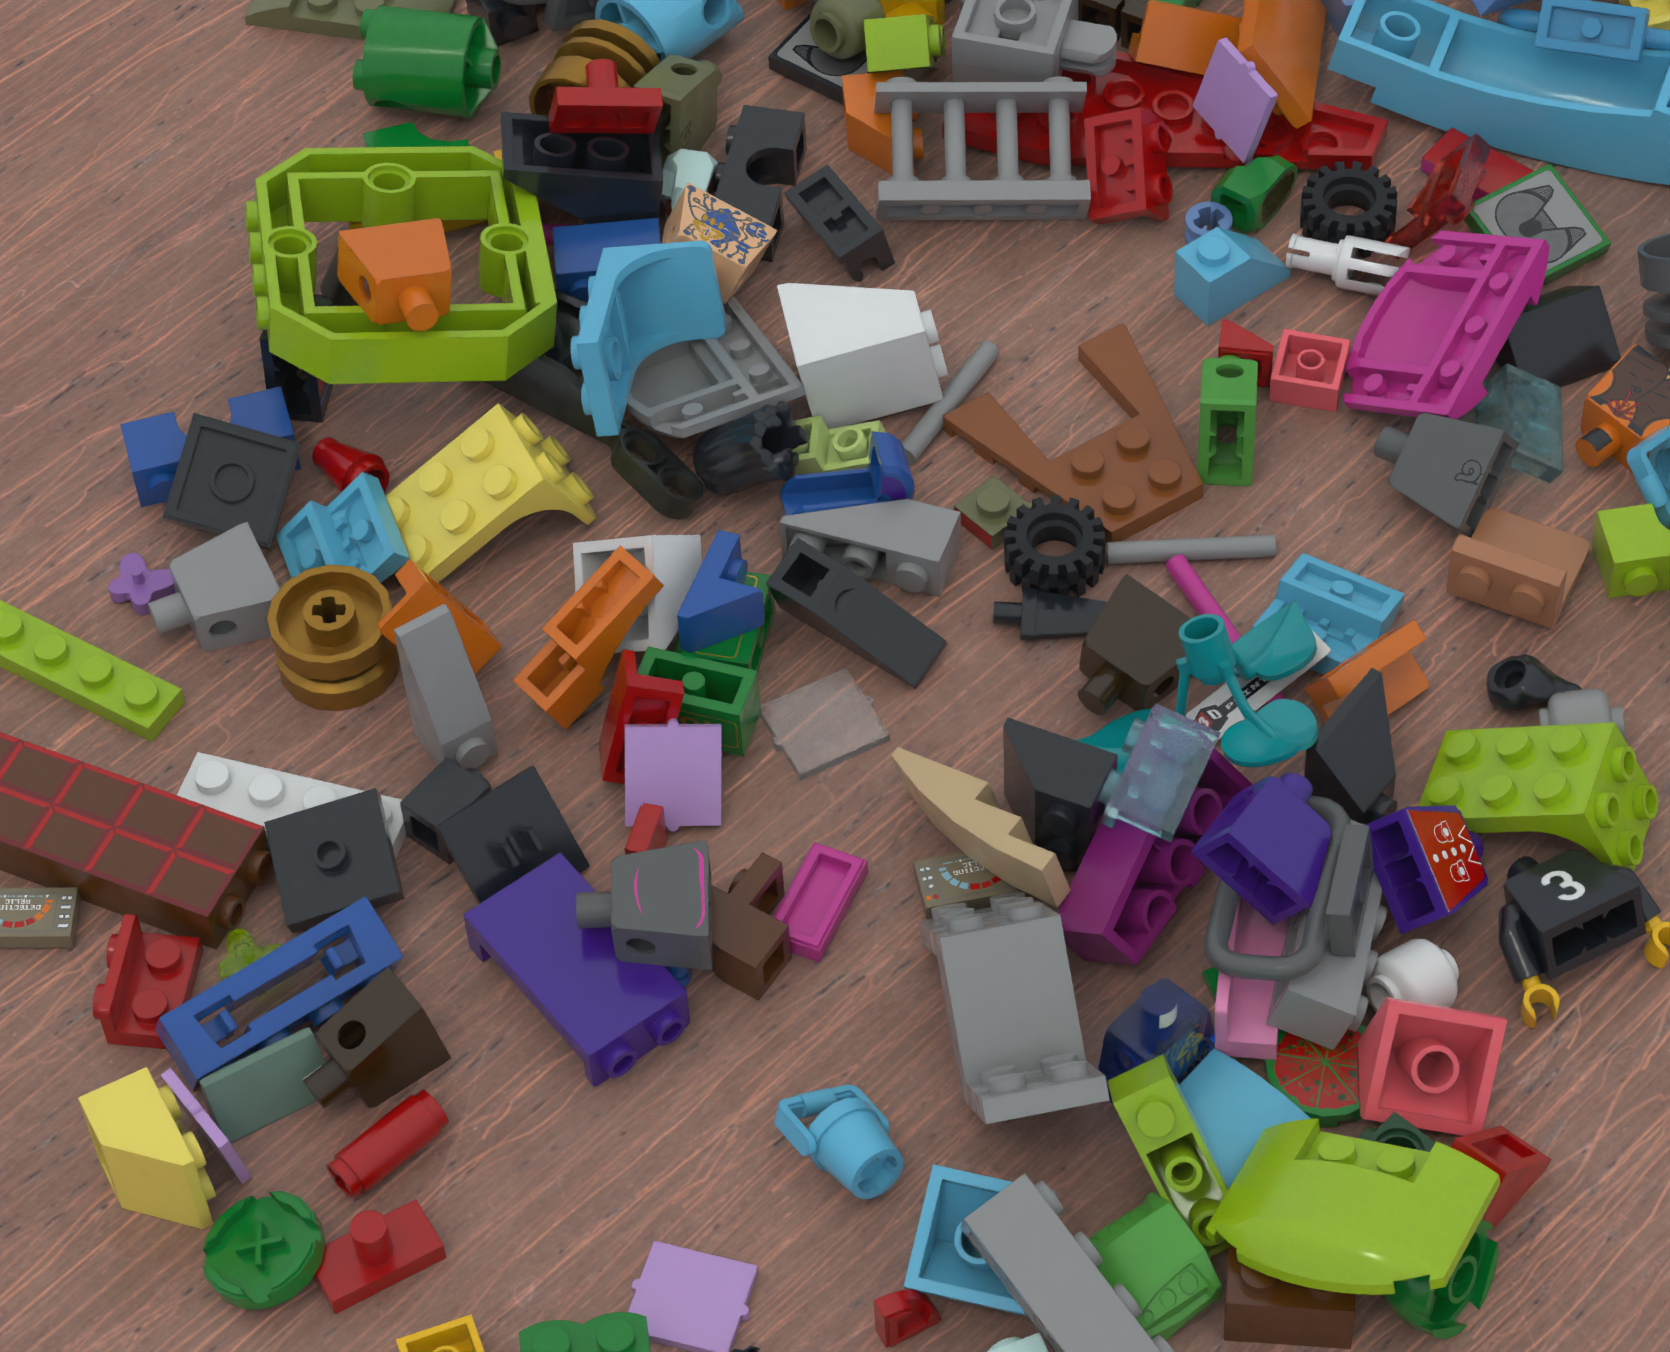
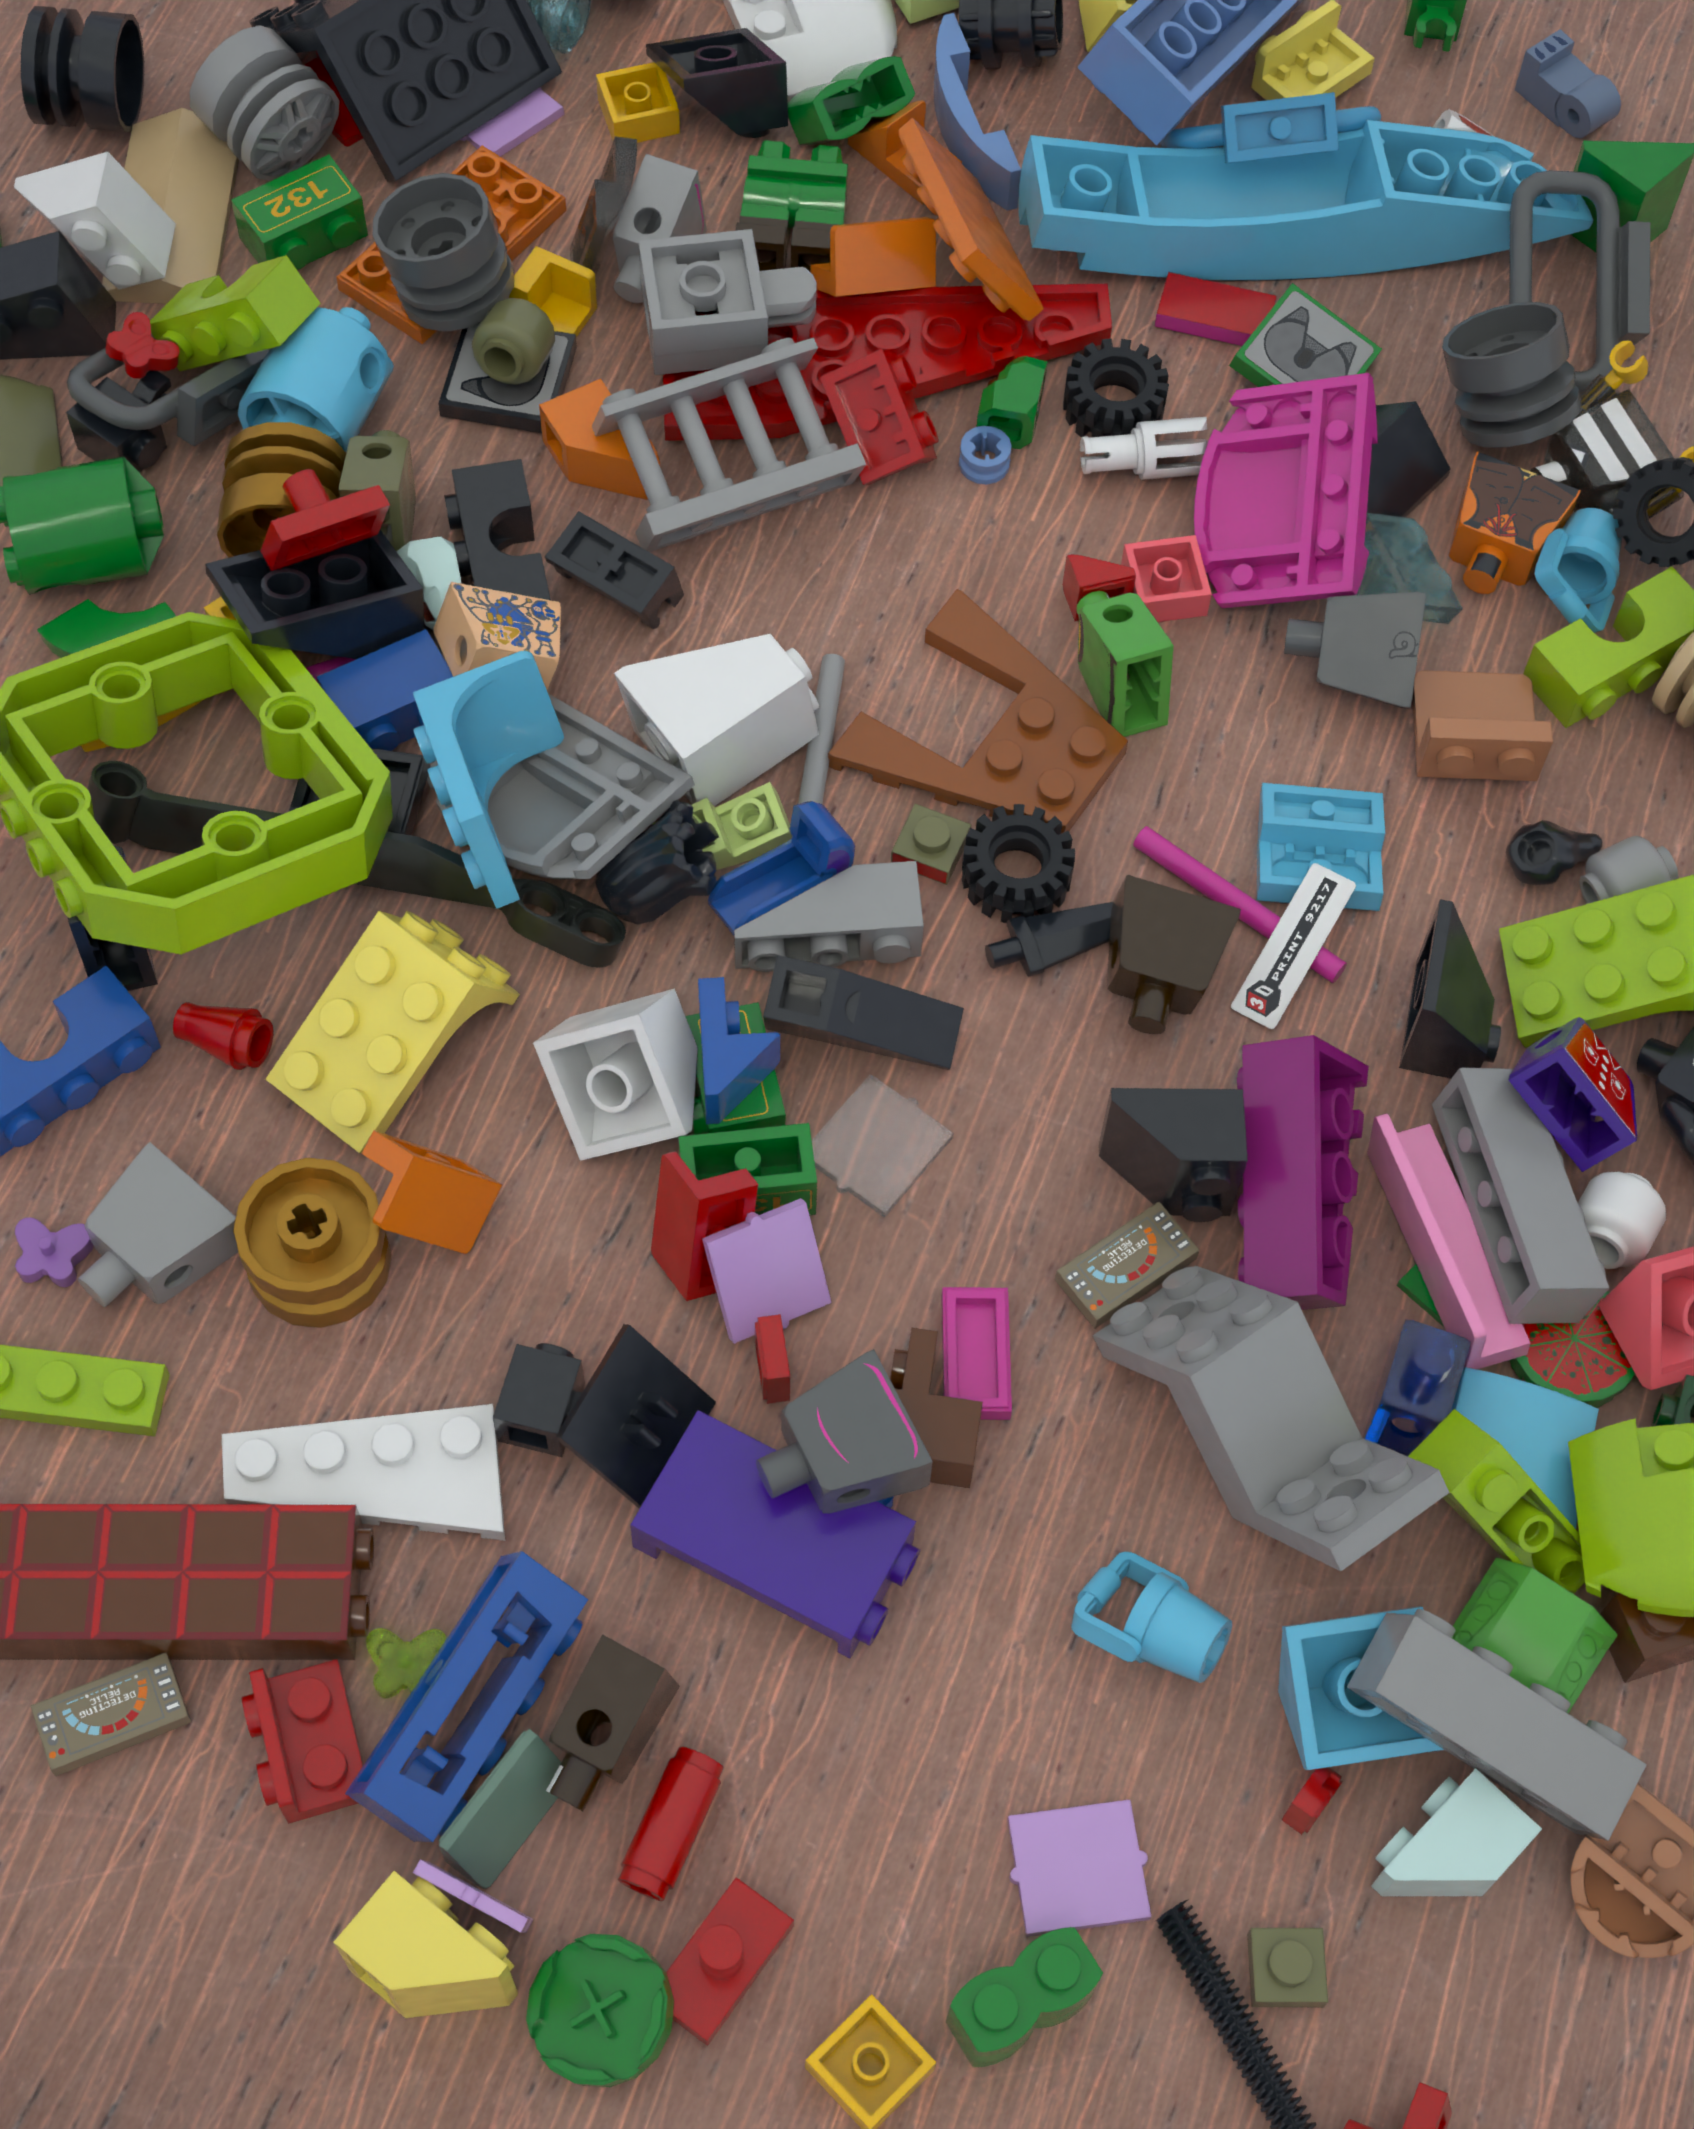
camera: 30 degrees left, 10 degrees up
(231, 479) = (104, 1096): black tile -> none
(333, 859) = (446, 1510): black plate -> none
(350, 531) = (261, 1119): medium azure slope -> none
(397, 272) = (212, 802): orange torso -> none
(443, 691) = (486, 1276): light grey slope -> none
(585, 636) = (606, 1146): orange slope -> none
(903, 43) = (590, 348): lime slope -> none
(971, 819) = (1097, 1203): tan slope -> none
(1160, 773) = (1299, 1097): clear light blue bracket -> none
(1192, 548) = (1152, 814): light grey bar -> none
(1224, 273) = (1030, 503): medium azure slope -> none
(1235, 100) = (969, 310): lavender piece -> none
(1269, 846) = (1447, 1136): dark purple torso -> none
(1270, 652) = (1296, 905): teal plant -> none
(1334, 915) = (1532, 1156): dark grey bar -> none
(1386, 654) = (1405, 900): orange panel -> none
(1446, 193) = (1211, 348): clear red wing -> none

